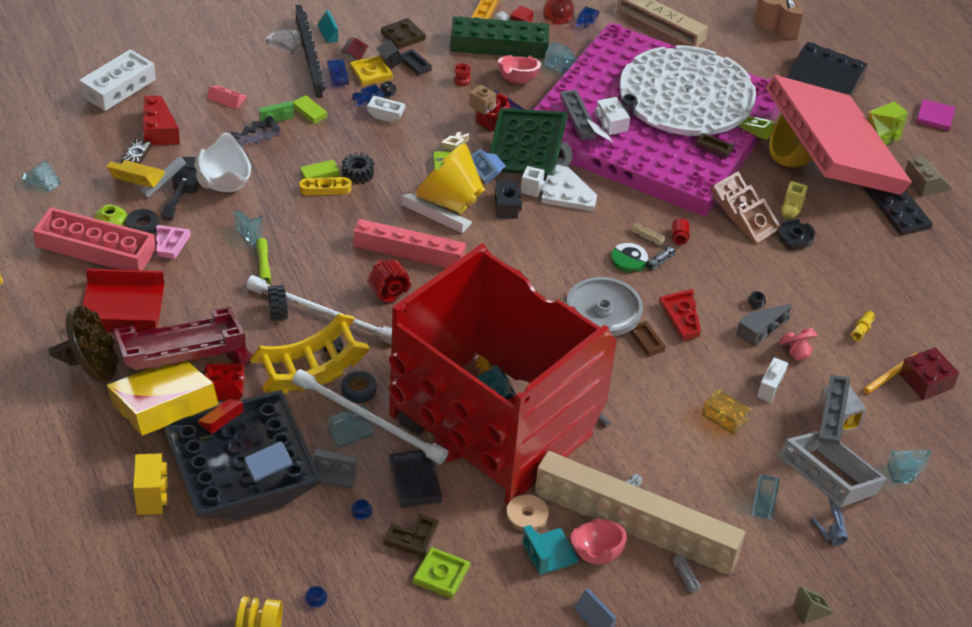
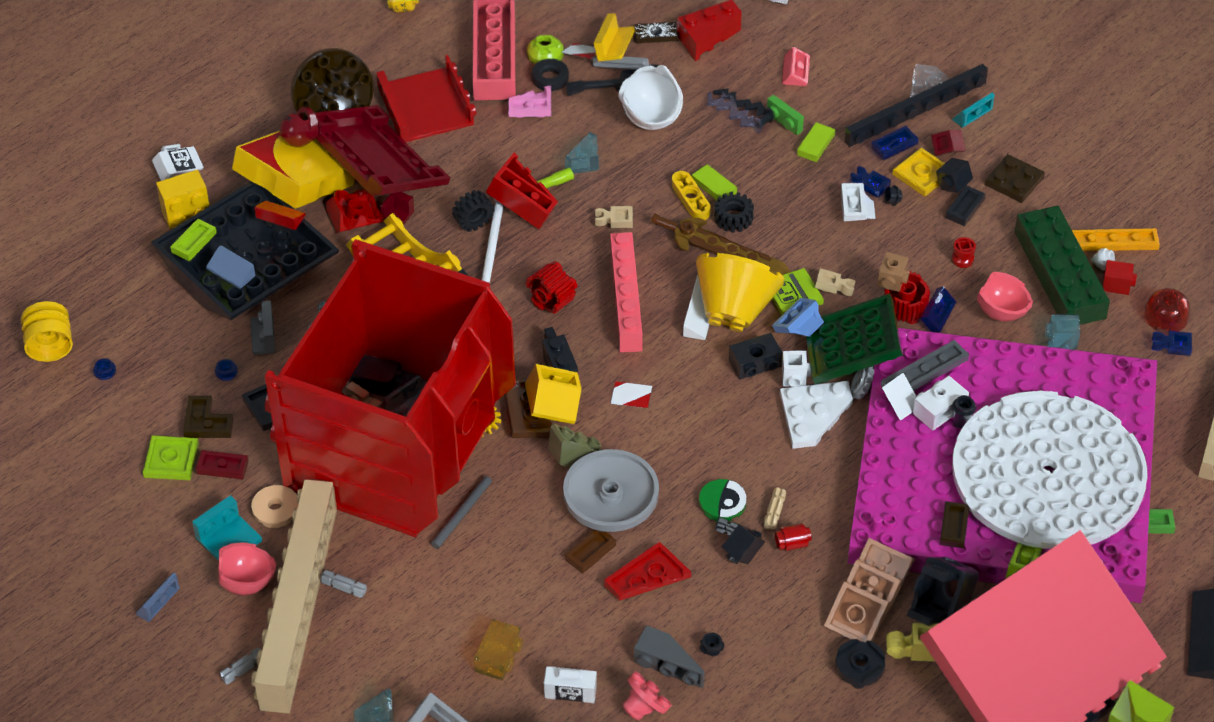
camera: 75 degrees right, 5 degrees up
(87, 485) = (176, 161): none -> white piece
(128, 197) = (581, 50): none -> white sticker
(134, 372) = (297, 131): none -> dark red helmet
(216, 481) = (193, 239): none -> lime tile
(278, 267) = (522, 193): none -> red wedge
(324, 229) = (618, 217): none -> tan plate
(369, 196) = (691, 232): none -> sword
(469, 536) = (222, 464): none -> dark red plate
(681, 255) = (742, 545): none -> black brick
(767, 169) = (933, 593): none -> black piece

